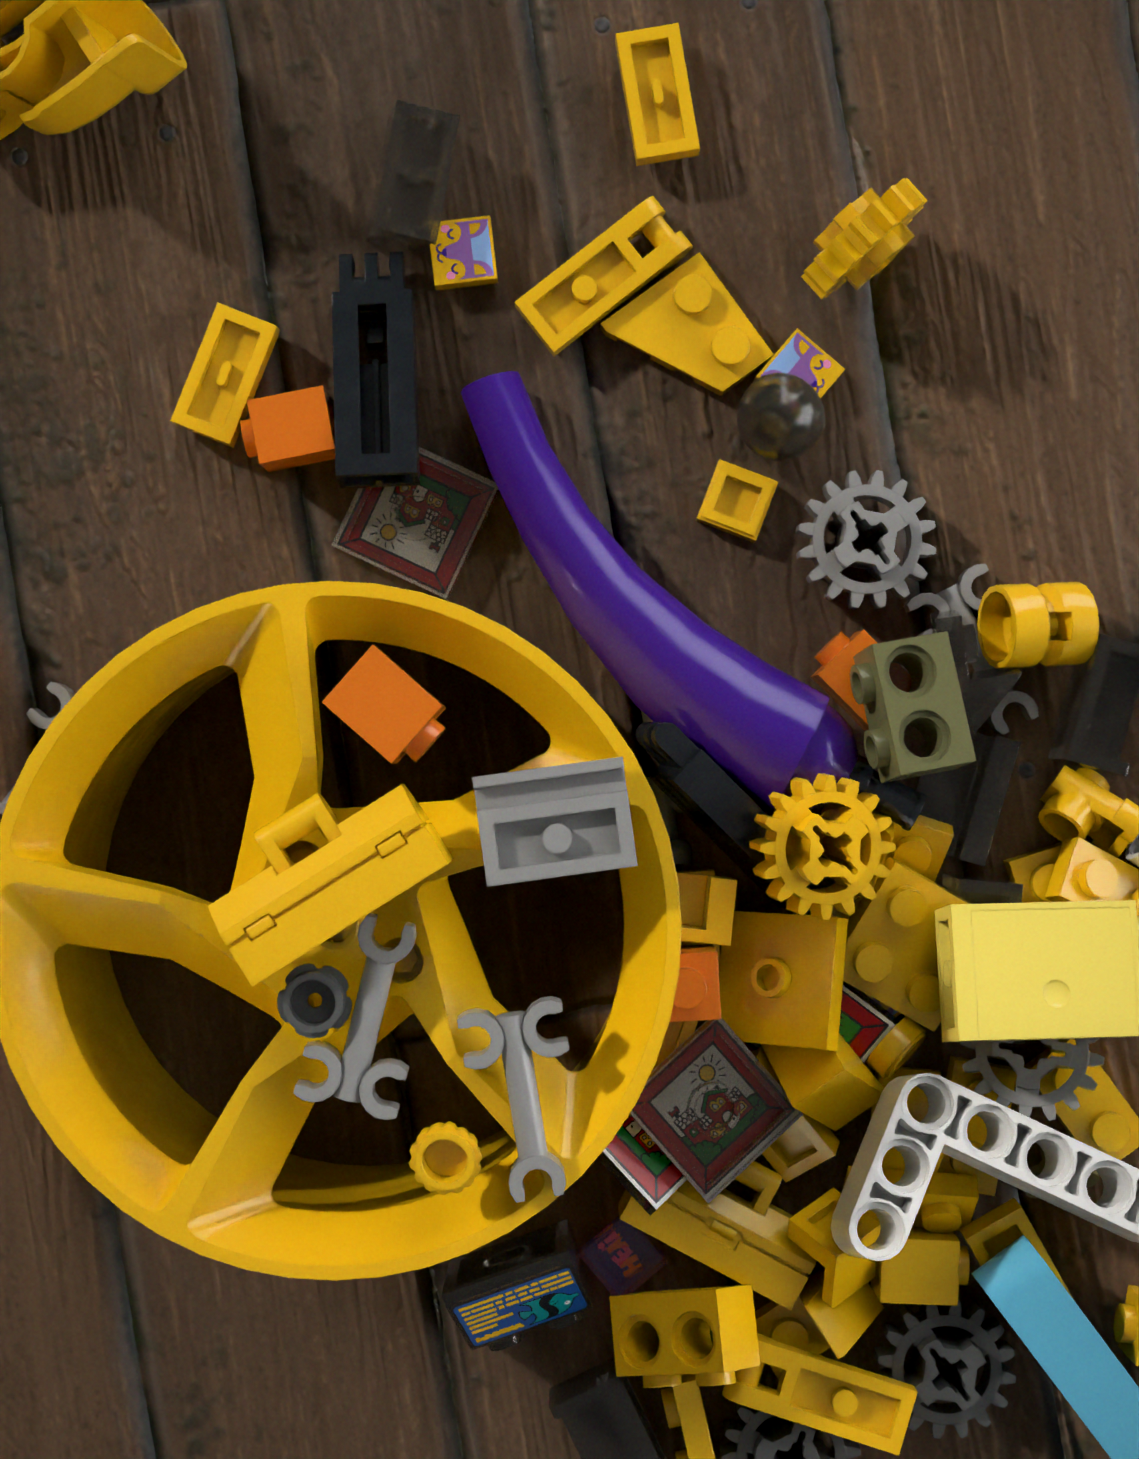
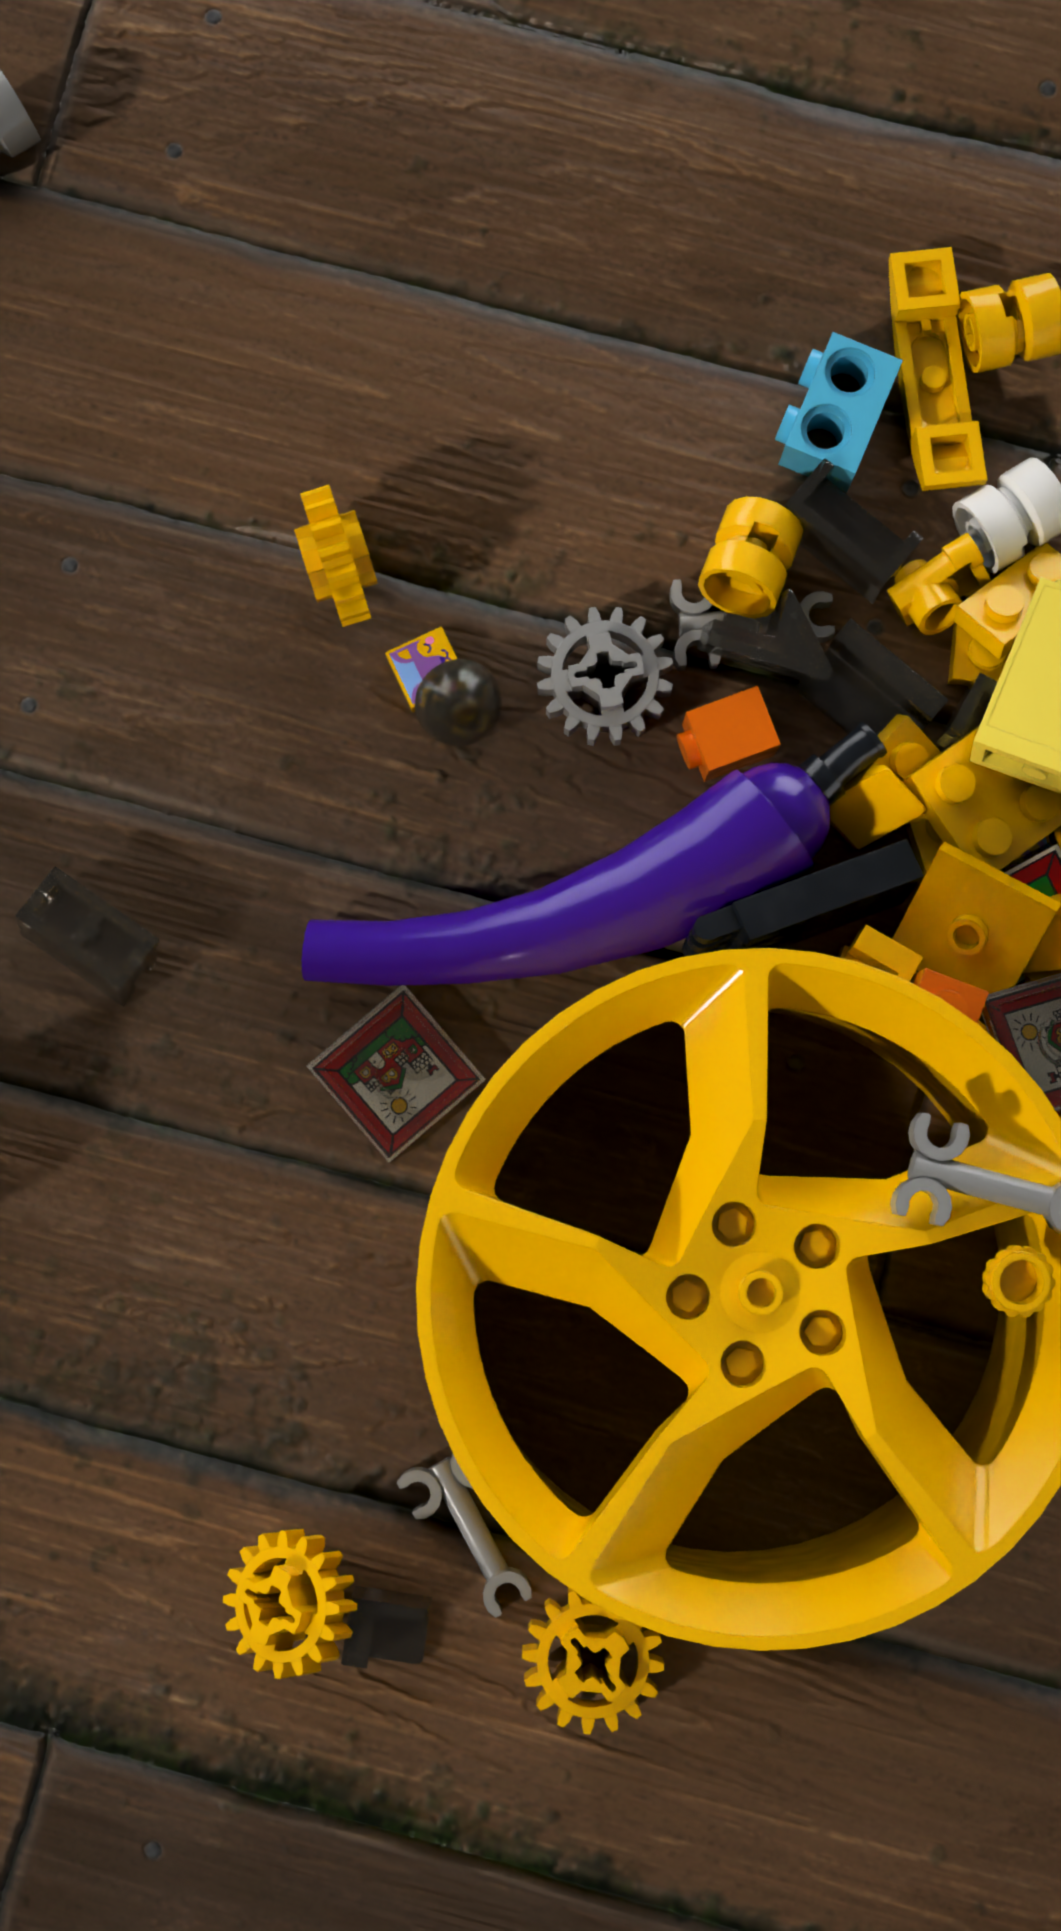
camera: 65 degrees left, 5 degrees down
(225, 374) = (187, 1189): yellow plate -> none
(290, 429) = (266, 1151): orange brick -> none
(308, 902) = (733, 1300): yellow piece -> none
(310, 1020) = (842, 1340): dark grey plate -> none
(351, 1074) = (905, 1331): light grey bar -> none
(375, 401) = (273, 1062): black hinge -> none
(387, 707) = (588, 1147): orange brick -> none
(464, 254) = (179, 920): tile -> none
(554, 821) = (756, 1045): light grey plate -> none
(601, 276) = (257, 807): yellow plate -> none
(657, 94) = (116, 682): yellow plate -> none
(692, 328) = (340, 745): yellow wing -> none
(737, 501) = (515, 776): yellow tile -> none
(795, 851) = (862, 857): yellow gear -> none
(930, 706) = (783, 680): olive brick -> none

